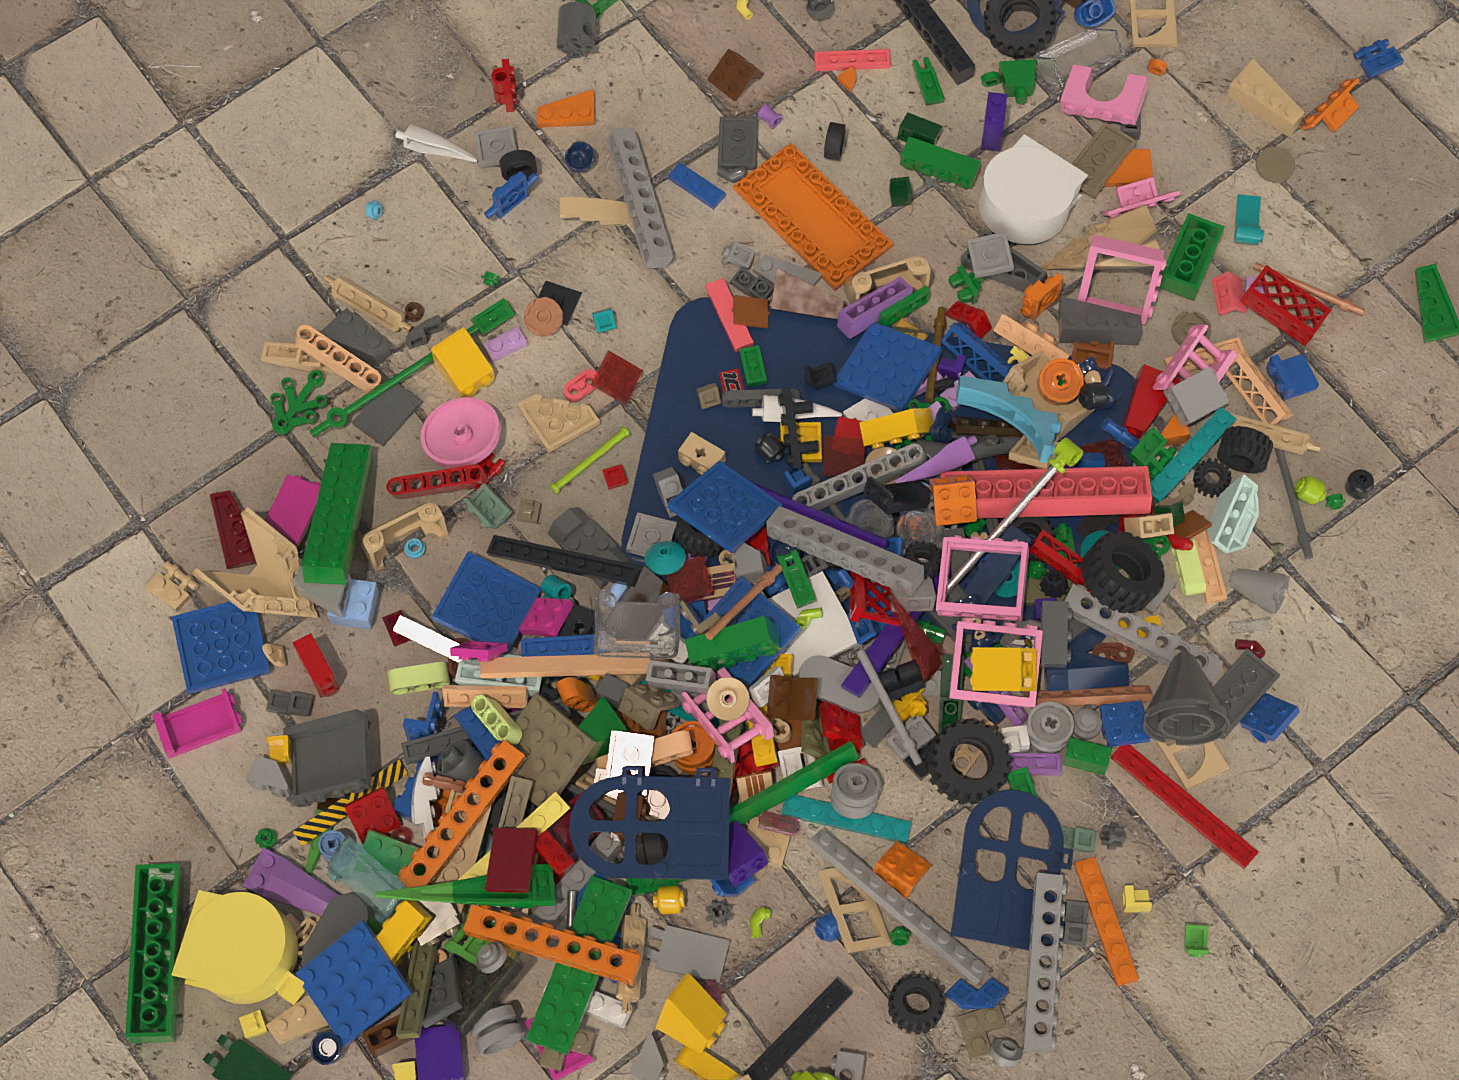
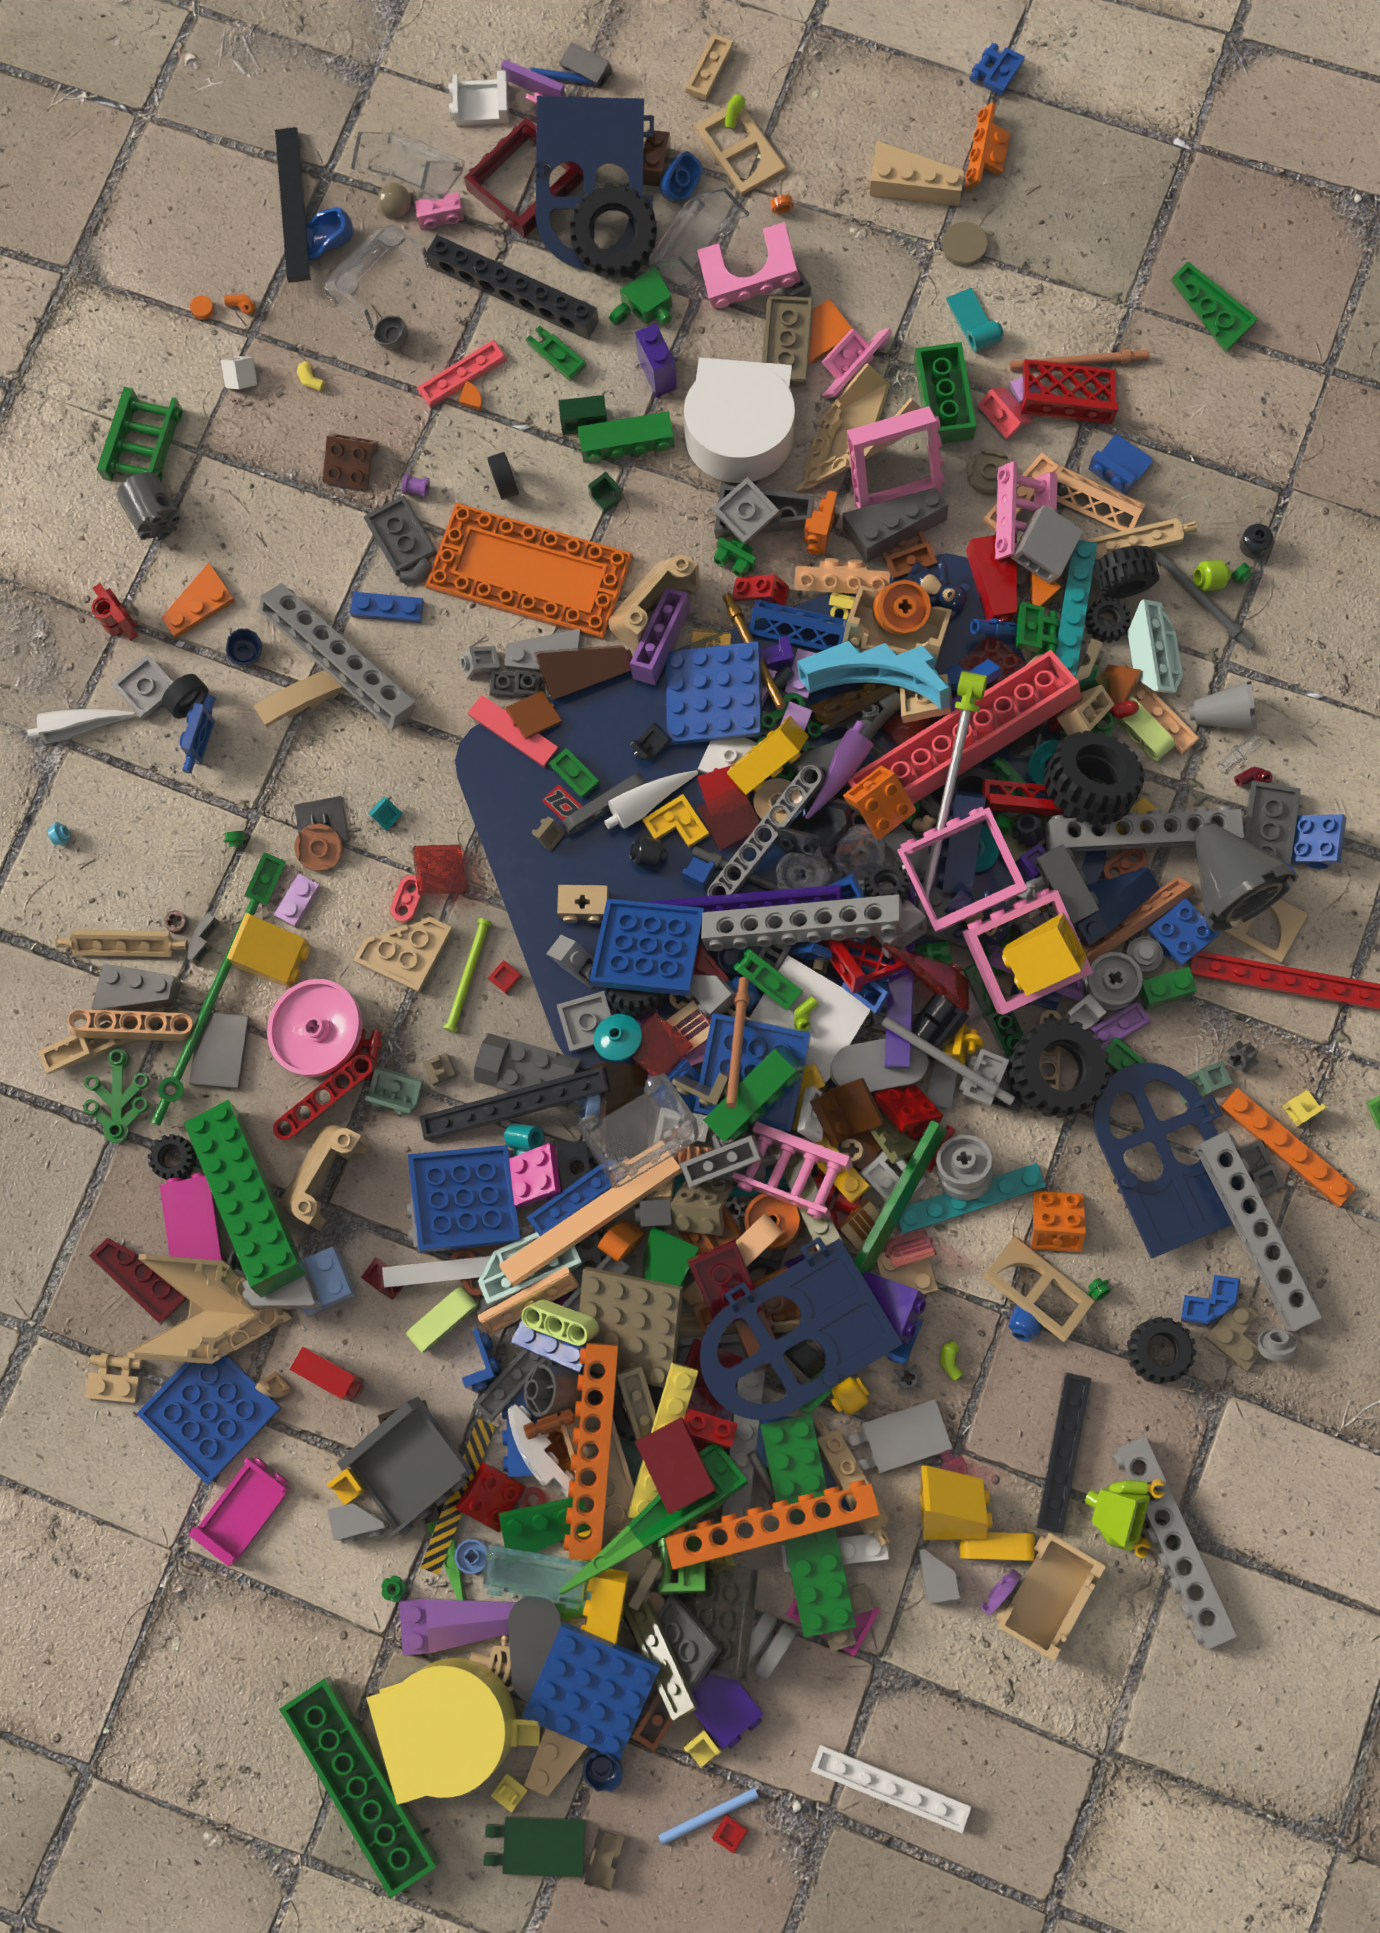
camera: 25 degrees left, 10 degrees up
(289, 703) = (322, 1429): dark grey slope -> none
(305, 453) = (161, 1147): none -> black tyre
(414, 543) = (338, 1178): medium azure plate -> none
(478, 649) = (492, 1258): dark pink plate -> none
(491, 957) = (718, 1579): light grey plate -> none
(719, 706) = (786, 1167): tan dish -> none
(790, 439) = (665, 830): black plate -> none
(898, 906) = (1080, 1260): light grey plate -> none
(904, 306) = (689, 616): green tile -> none
(939, 430) = (814, 734): dark blue plate -> none
(1093, 395) = (946, 604): black head -> none

